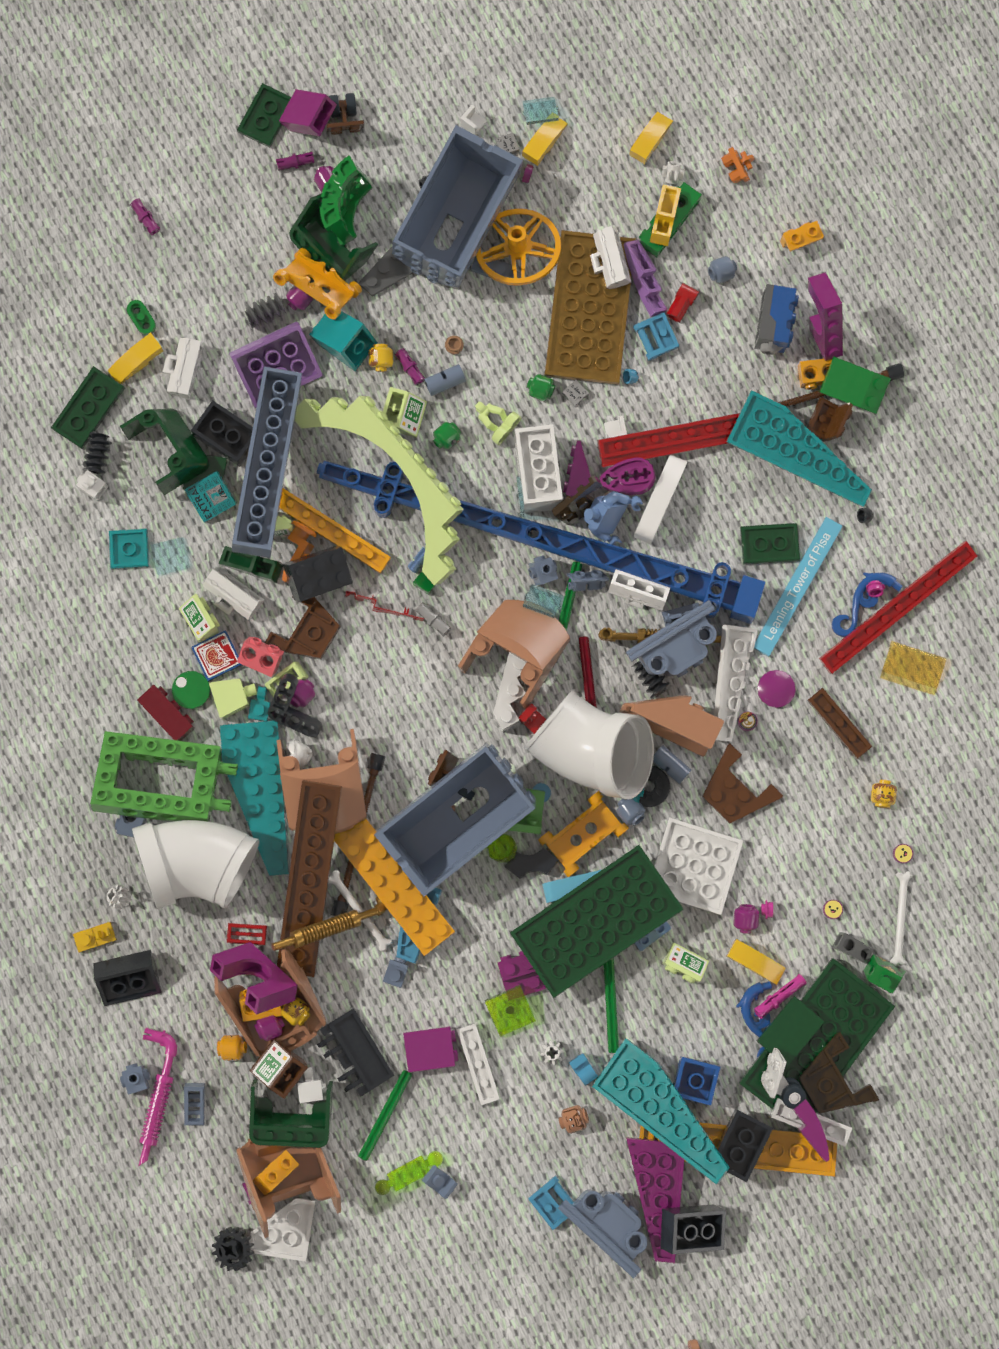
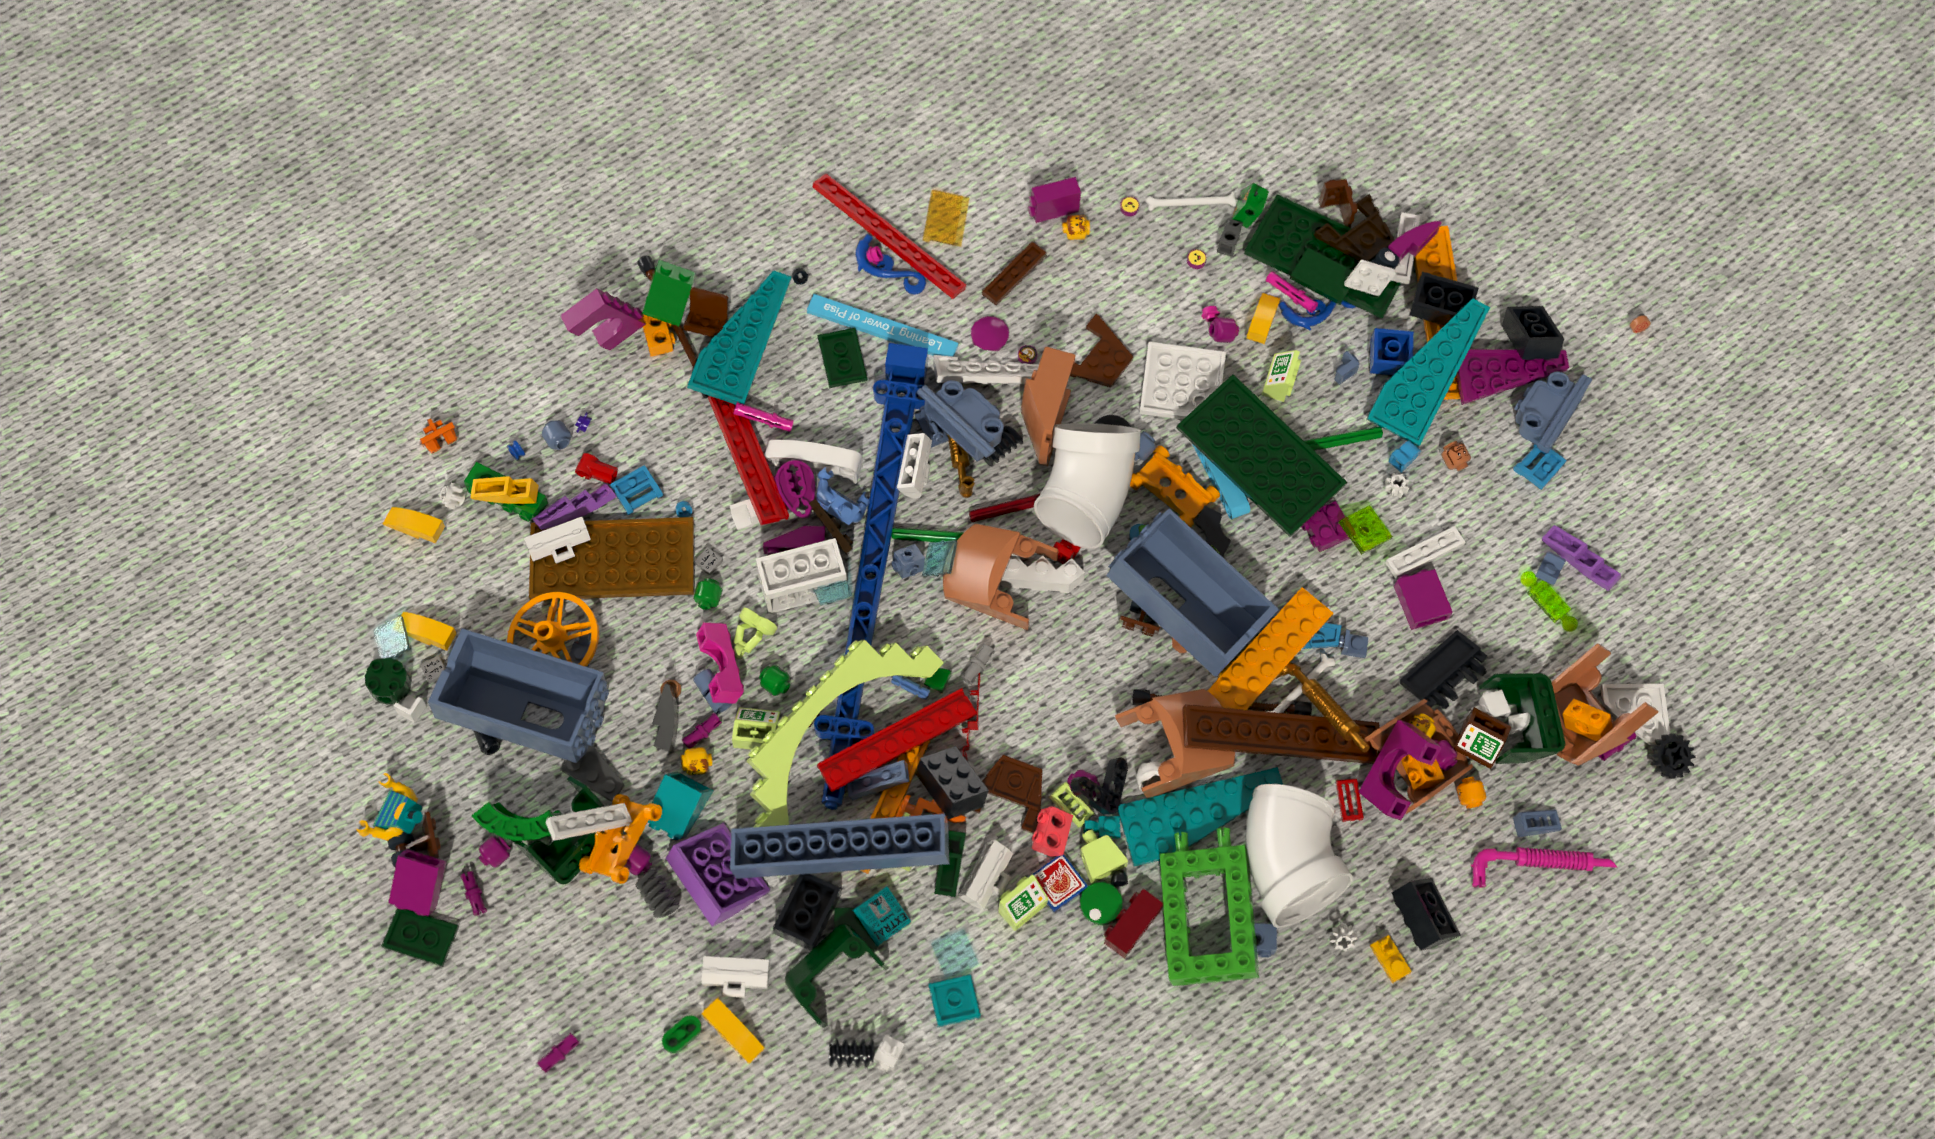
camera: 100 degrees left, 15 degrees down
(88, 407) = (797, 1077): dark green tile -> none
(141, 1082) = (1530, 884): sand blue brick -> none
(209, 709) = (1119, 878): none -> black hinge
(291, 1110) = (1518, 723): none -> white tile
(328, 253) = (588, 821): none -> white plate
(334, 511) = (879, 780): none -> sand blue plate
(368, 533) = (896, 739): none -> red plate
(374, 102) = (397, 813): none -> torso
(385, 1115) = (1498, 633): green axle -> none
(421, 335) = (667, 720): none -> dark grey slope
(448, 1217) = (1581, 558): none -> medium lavender slope
(491, 387) = (715, 641): none -> dark pink arch
(499, 103) = (387, 680): none -> dark green brick
(594, 579) = (910, 518): sand blue hinge -> none
(671, 764) = (1089, 410): sand blue pin -> none
(683, 1030) = (1347, 369): none -> sand blue bracket
(712, 232) = (516, 450): none -> blue bush
(712, 460) = (770, 419): none -> dark pink pin
(732, 295) = (583, 423): none -> dark purple plate
(776, 319) = (607, 375): piece -> none
(802, 236) = (513, 362): light orange bracket -> none
(886, 1064) = (1339, 193): none -> reddish brown bracket
(913, 775) = (1054, 200): none -> magenta brick

